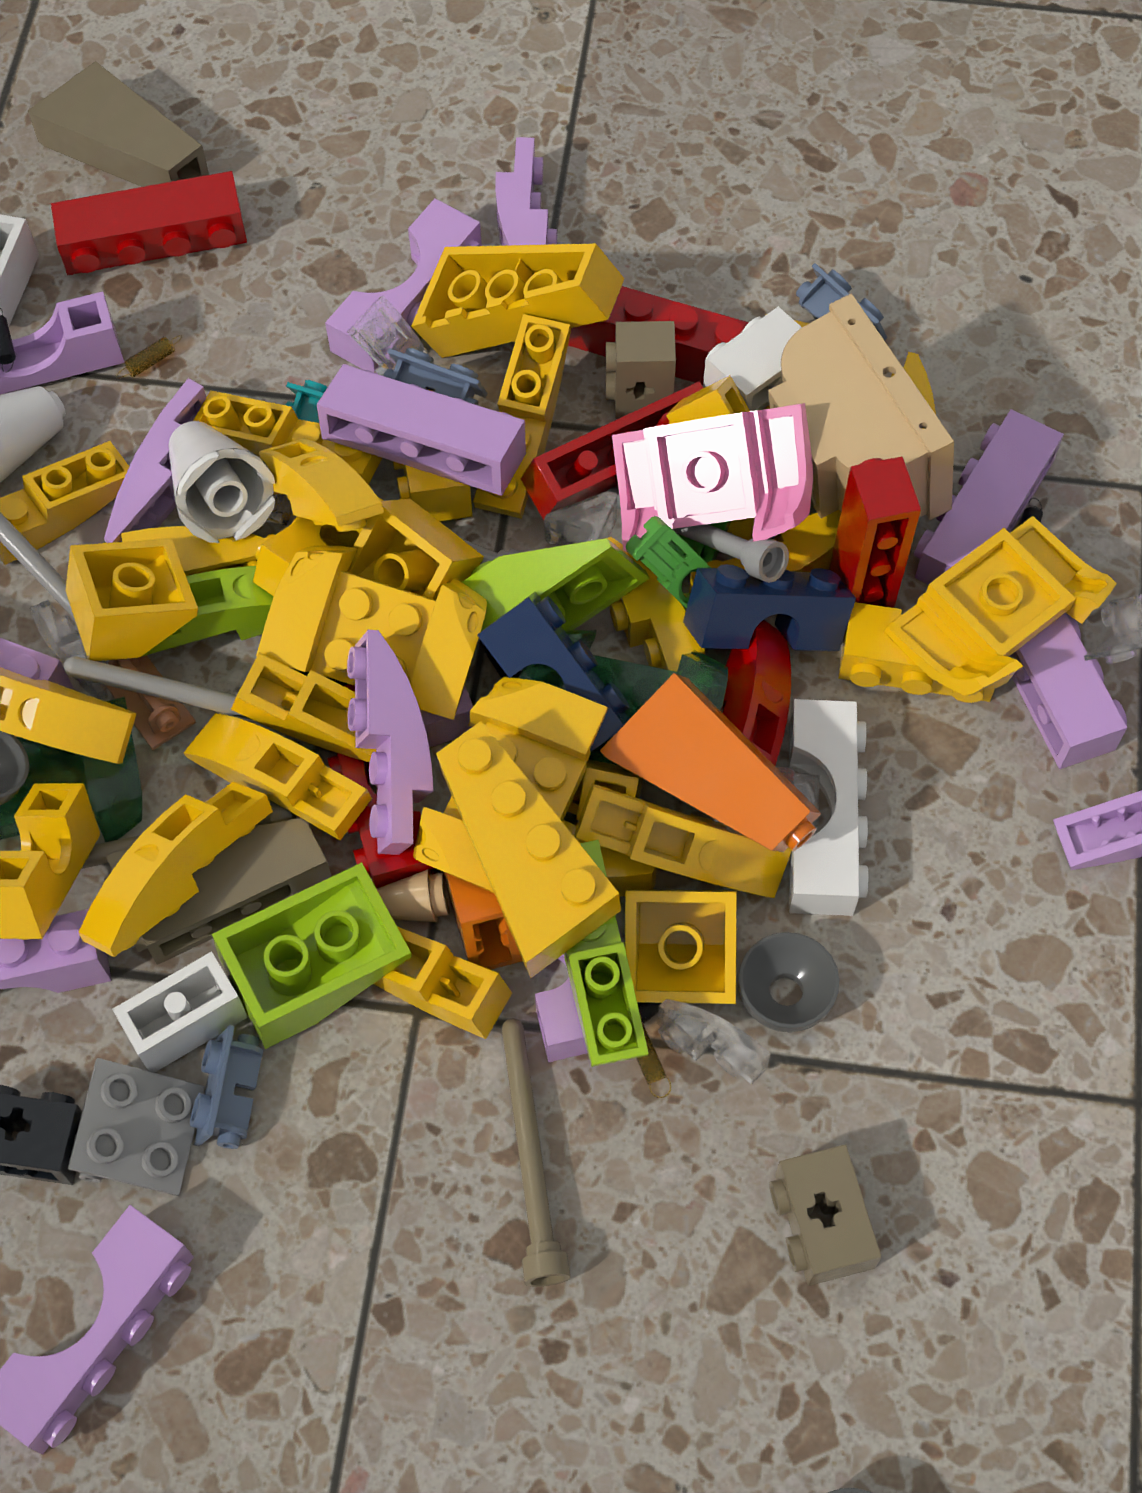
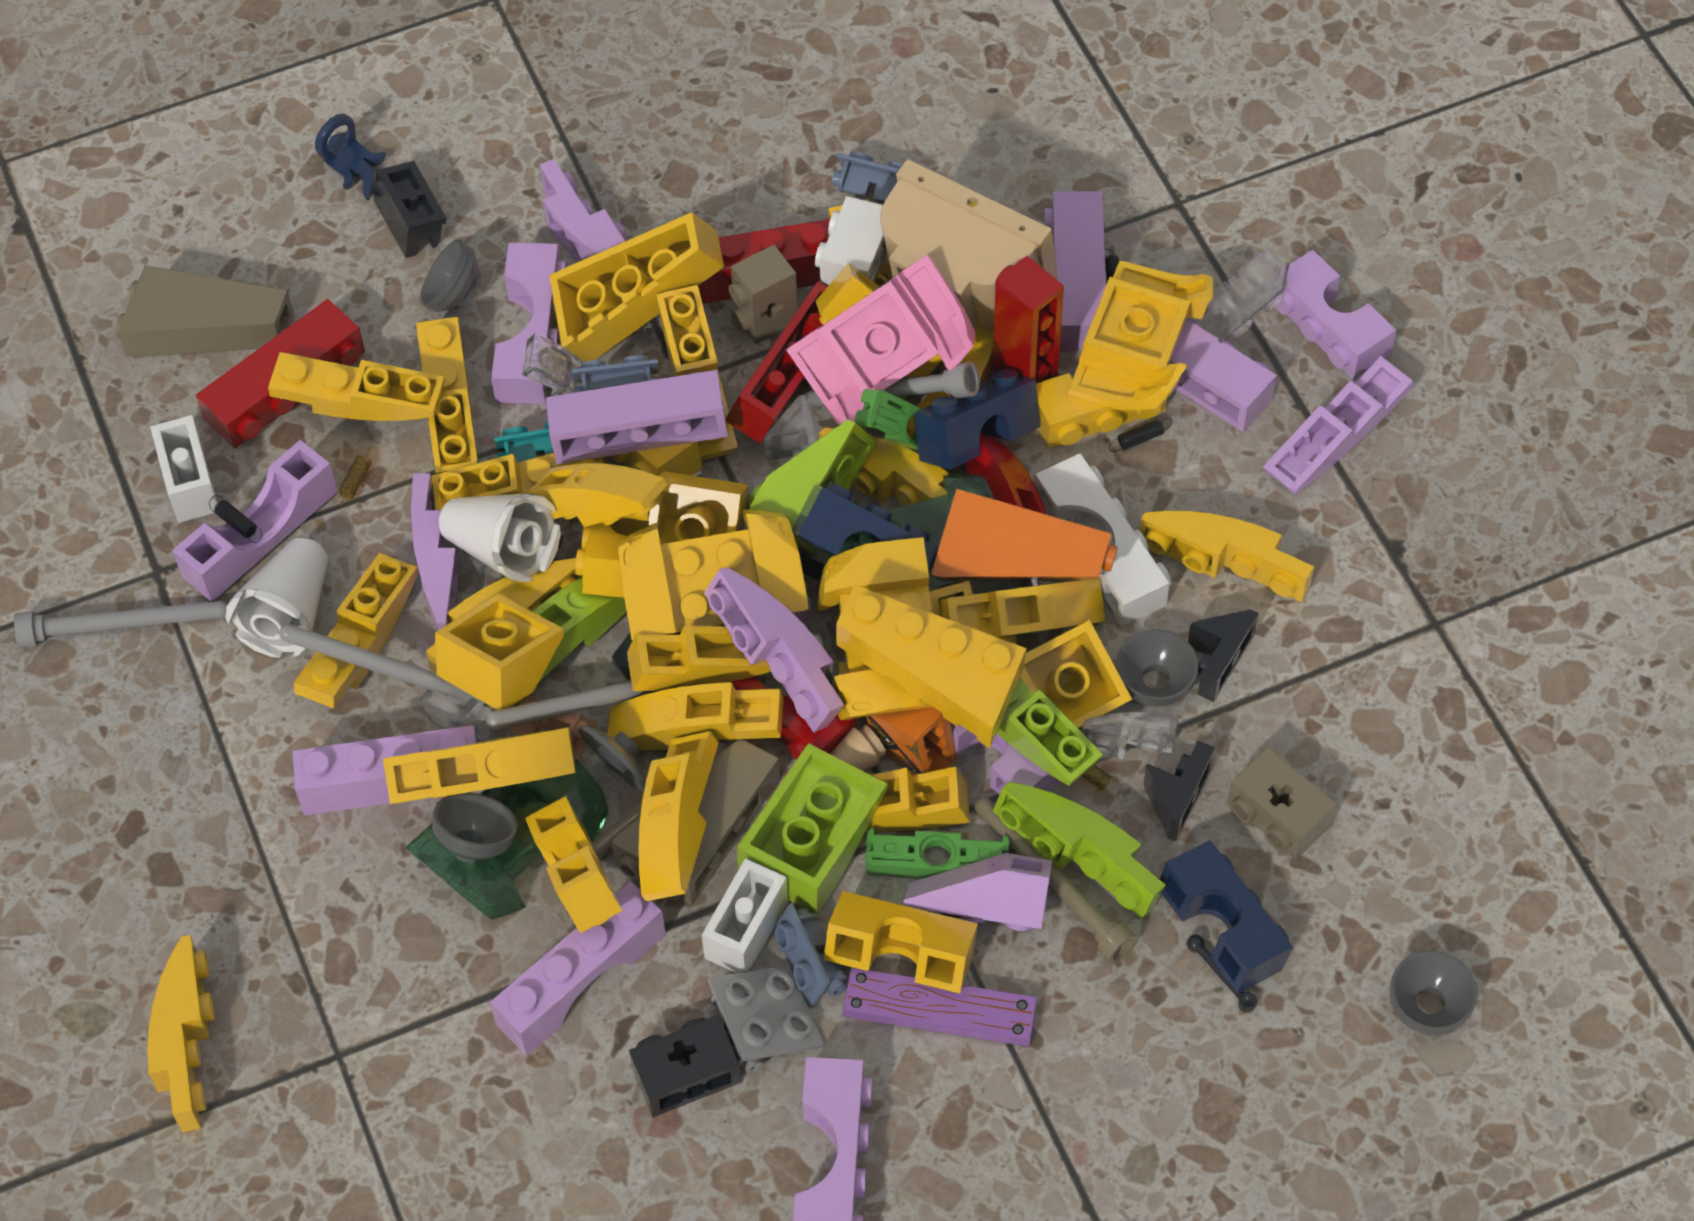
camera: 30 degrees left, 5 degrees down
(171, 762) = (616, 753): none -> dark grey dish
(191, 270) = (356, 393): none -> yellow slope
(282, 323) = (453, 424): none -> yellow slope
(295, 1095) = (873, 927): none -> yellow arch
(319, 1227) = (971, 1013): none -> medium lavender tile
(355, 47) = (346, 154): none -> dark blue piece
(364, 210) = (451, 278): none -> dark grey piece
(375, 120) = (408, 206): none -> black hinge
(447, 1130) = (996, 889): none -> lavender slope
(453, 1080) = (905, 854): none -> bright green piece
(570, 1113) = (1069, 832): none -> lime slope
(645, 1420) = (1247, 1000): none -> black hinge
(683, 1259) = (1207, 884): none -> dark blue arch
(719, 1142) = (1176, 793): none -> black slope
(885, 993) = (1223, 644): none -> black slope
(941, 873) = (1212, 541): none -> yellow slope
(944, 714) = (1140, 434): none -> black piece

